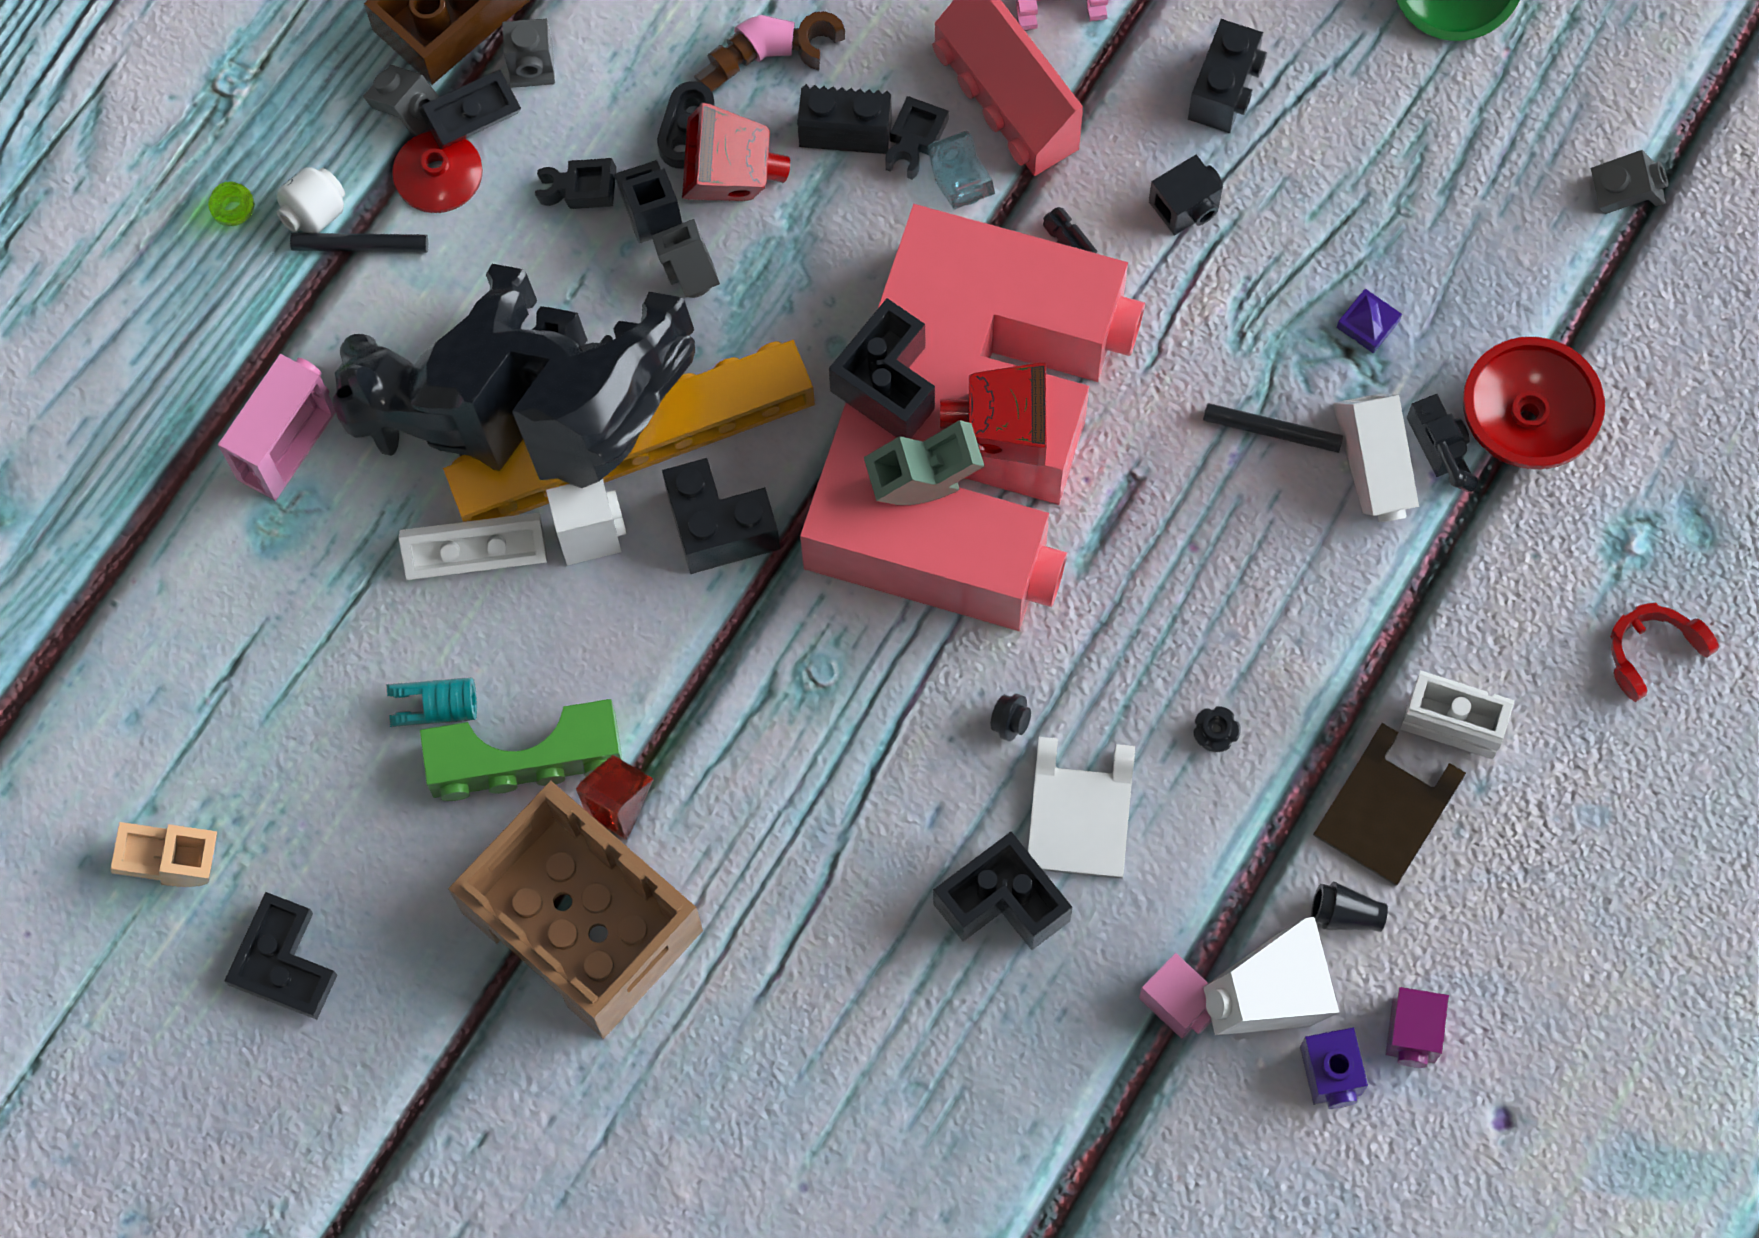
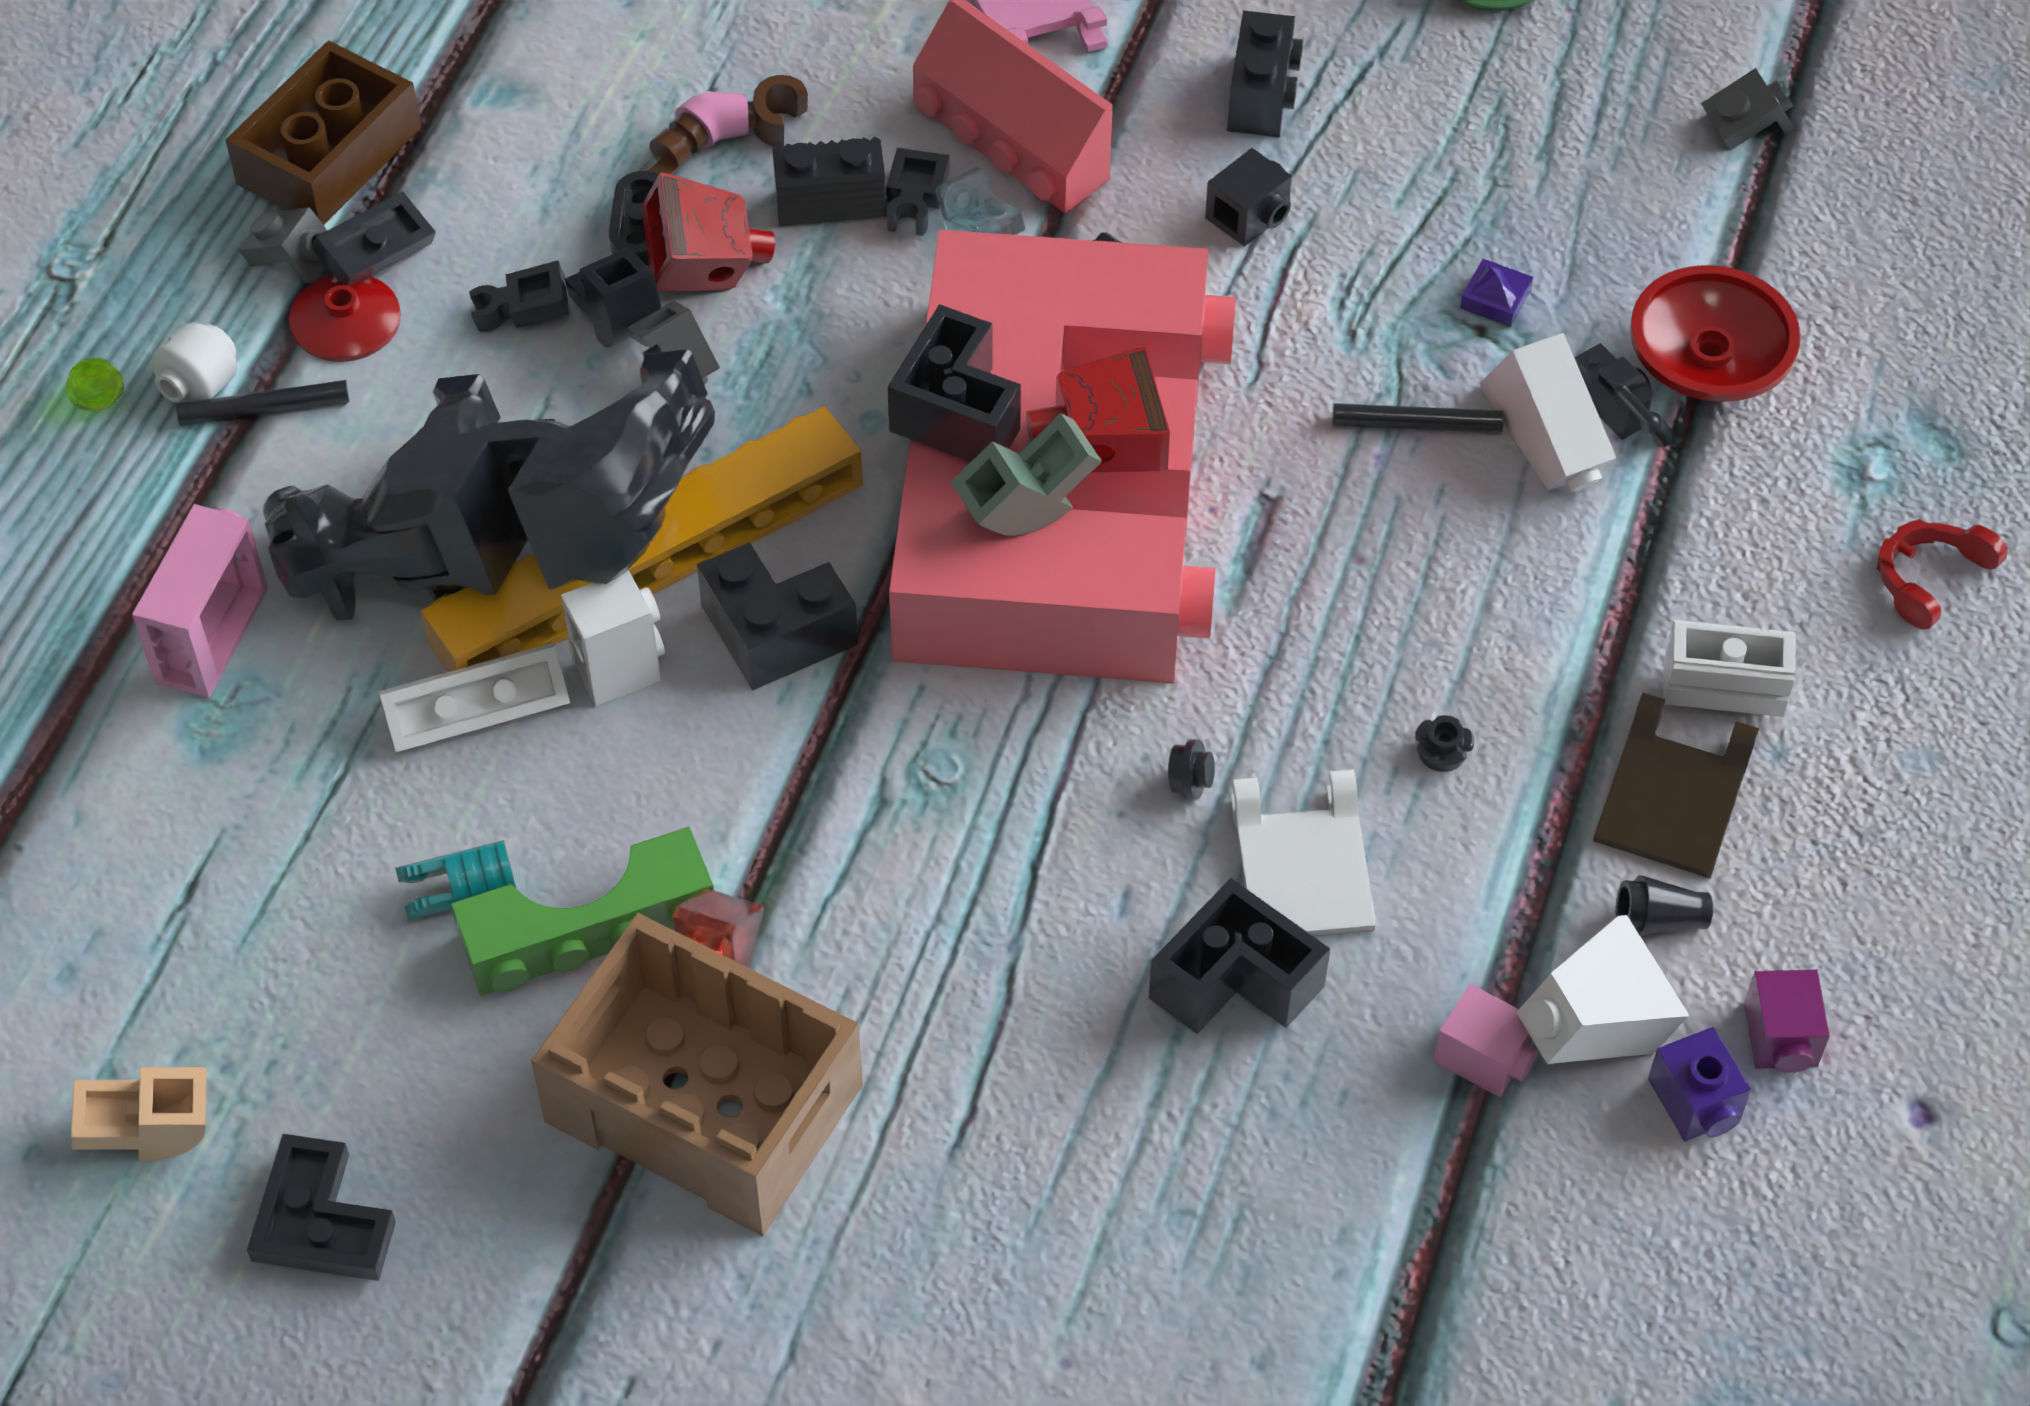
camera: 15 degrees left, 15 degrees down
(528, 52) = (434, 171): dark grey brick -> none

